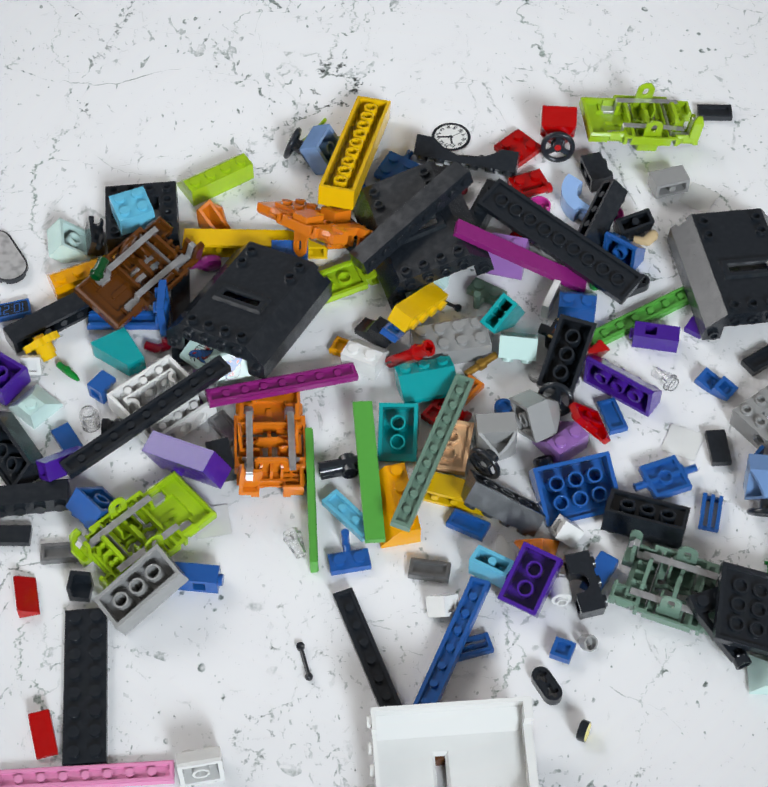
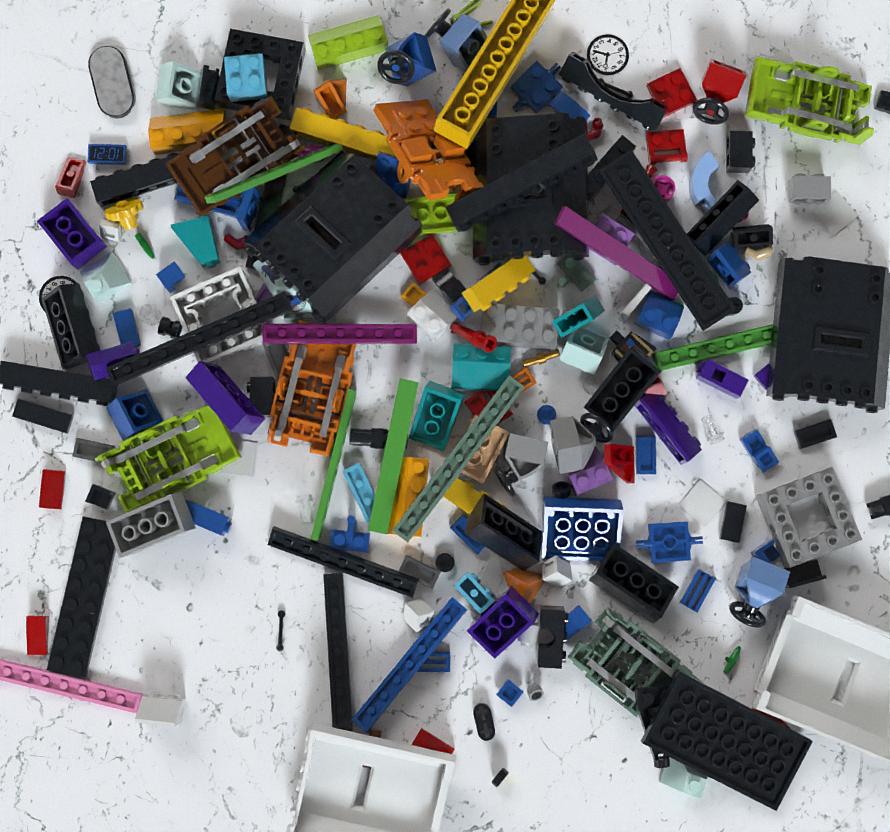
camera: 15 degrees right, 30 degrees up
(99, 268) = (193, 150): dark green pin -> none
(180, 267) = (273, 173): none -> bright green tile
(275, 171) = (408, 60): none -> blue piece
(342, 317) = (425, 259): none -> red plate
(346, 578) = (343, 561): none -> black tile
(452, 554) = (444, 562): none -> black tile

